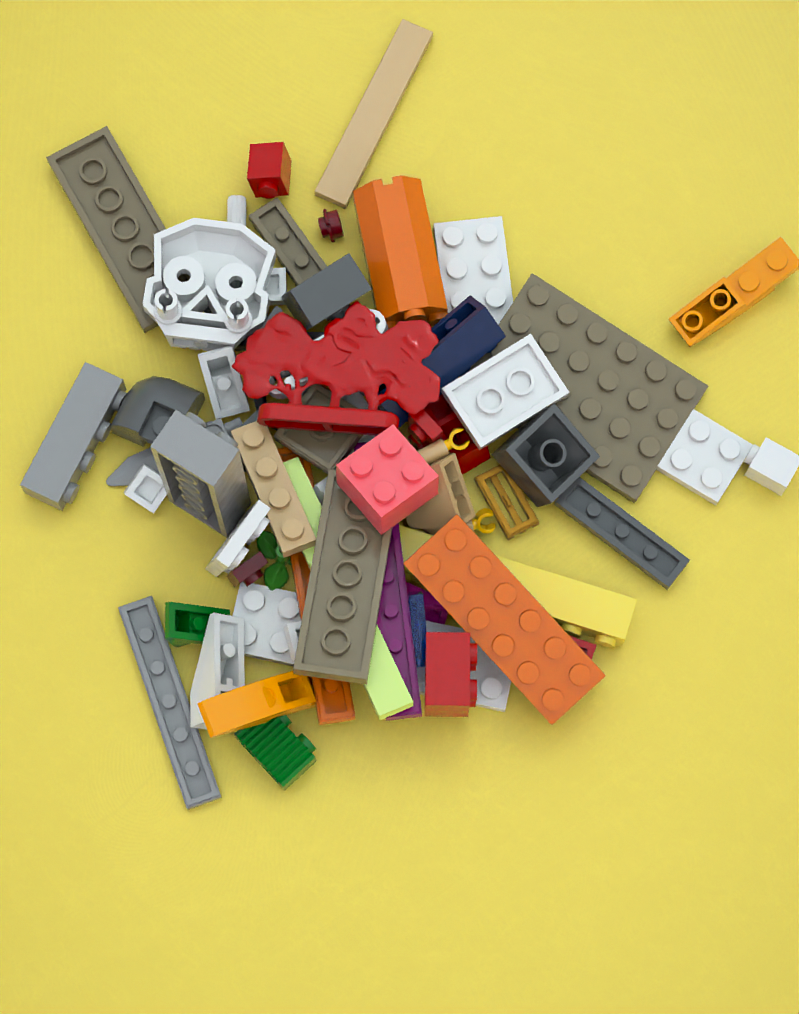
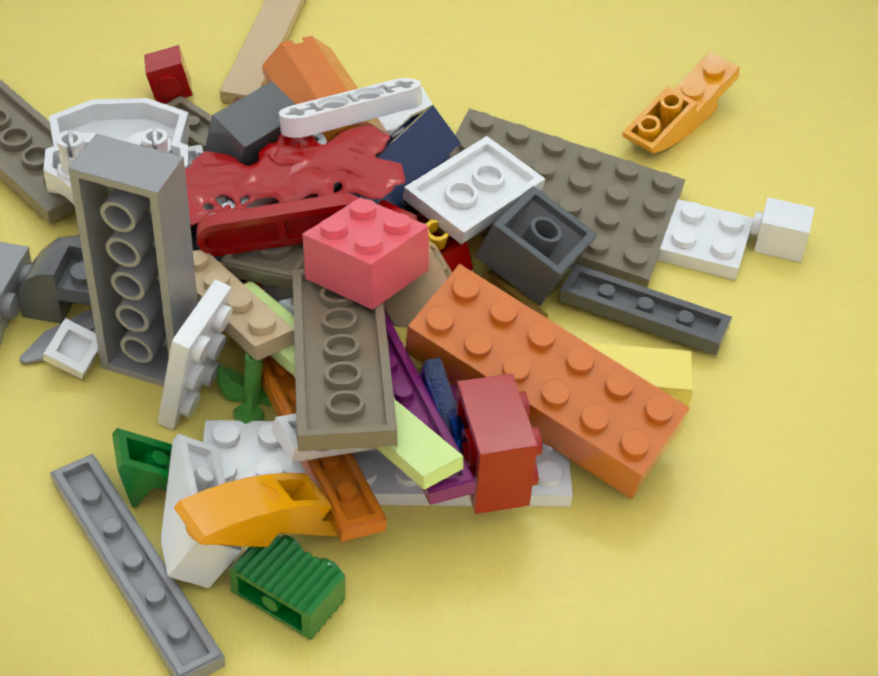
camera: 15 degrees left, 30 degrees down
(248, 571) = (211, 403): dark red plate -> none
(416, 300) = (350, 107): none -> white beam

